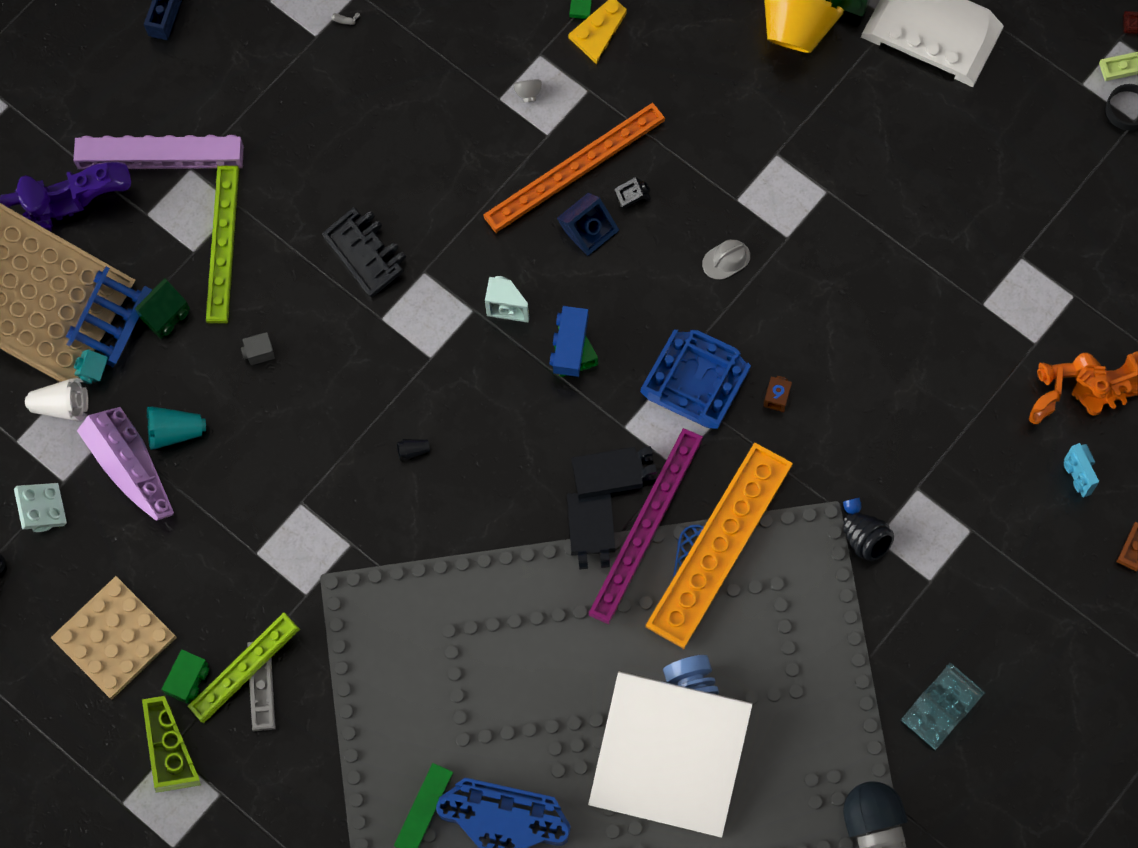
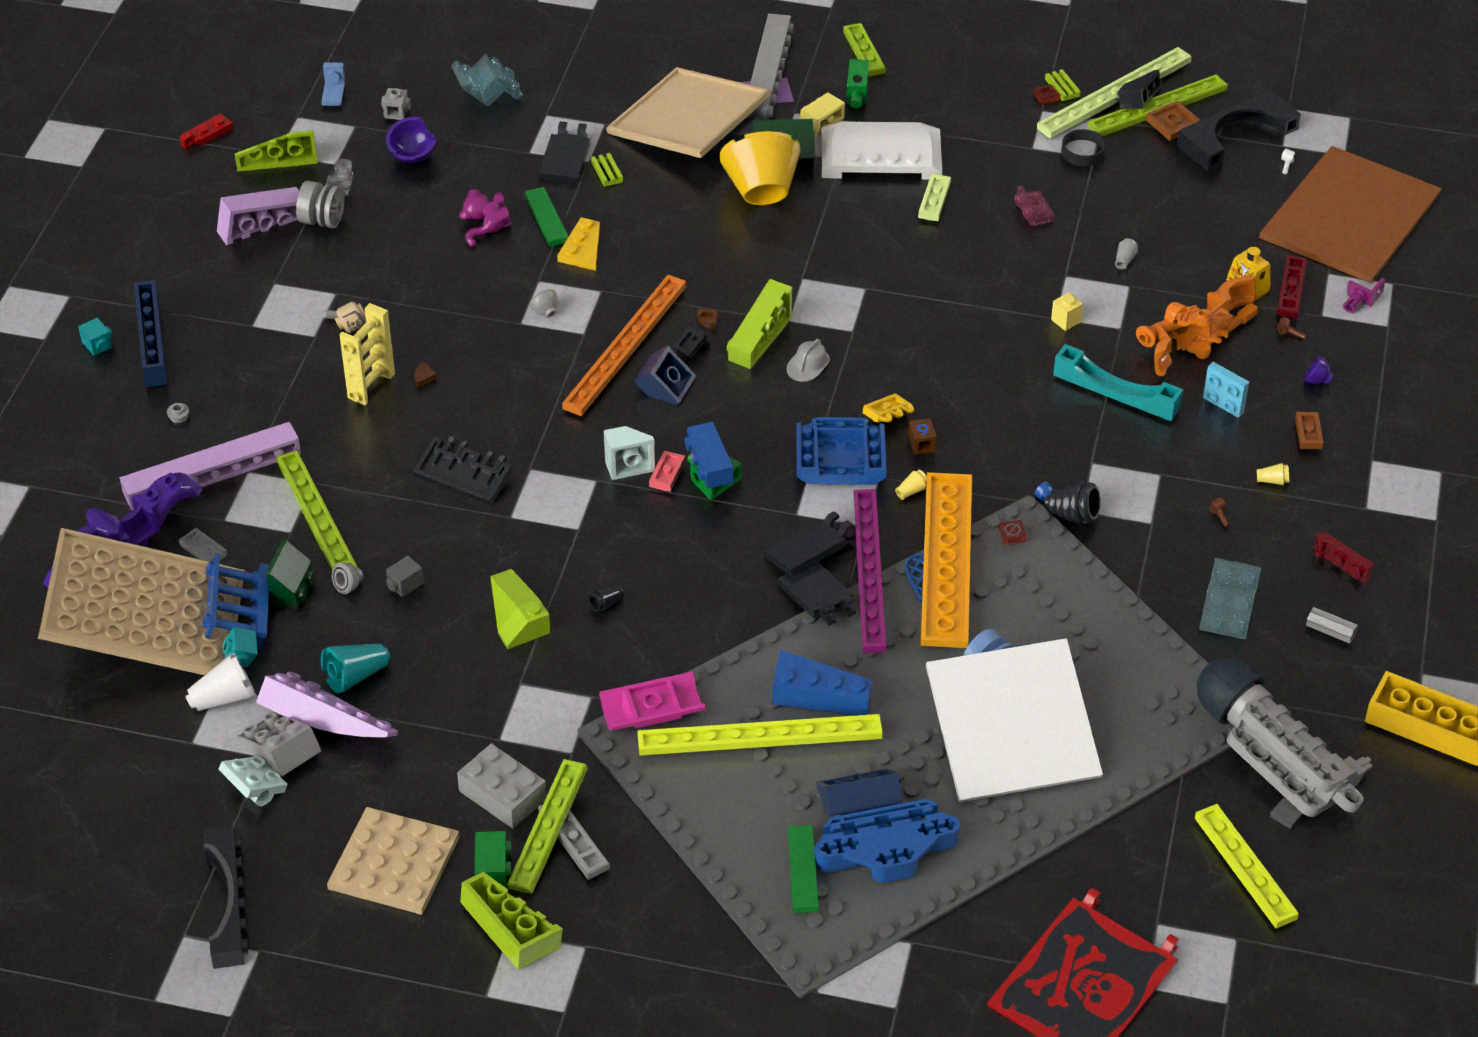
camera: 30 degrees left, 25 degrees down
(78, 478) = (280, 742): none -> light grey slope
(114, 238) = (201, 545): none -> clear tile
(163, 82) = (178, 412): none -> light grey plate
(211, 328) = (346, 577): none -> light grey brick
(228, 608) = (502, 785): none -> light grey brick
(333, 426) = (517, 610): none -> lime wedge
(349, 96) = (380, 355): none -> light yellow fence
(352, 32) = (350, 317): none -> tan head
(384, 125) = (424, 375): none -> reddish brown tile
(388, 584) = (651, 702): none -> dark pink piece
(460, 658) = (759, 734): none -> neon yellow plate
(508, 757) = (859, 792): none -> dark blue slope
(528, 630) = (819, 686): none -> blue wedge
(535, 331) = (667, 471): none -> coral plate
(665, 166) = (708, 318): none -> reddish brown tile
(701, 202) = (762, 324): none -> lime wedge
(738, 444) = (912, 484): none -> light yellow cone
(764, 348) = (887, 407): none -> yellow plate
(794, 540) = (1012, 532): none -> clear red tile
(950, 110) = (934, 197): none -> yellowish green plate
(992, 307) = (1067, 311): none -> light yellow brick
(997, 594) = (1217, 507): none -> copper hand
(1010, 446) = (1078, 369): none -> teal arch
(1020, 773) = (1332, 625): none -> light grey axle
(1039, 162) = (1034, 207): none -> clear pink bracket
(1071, 582) = (1274, 474): none -> light yellow cone
(1076, 705) = (1343, 557): none -> dark red plate
(1091, 258) = (1126, 251): none -> light grey cone

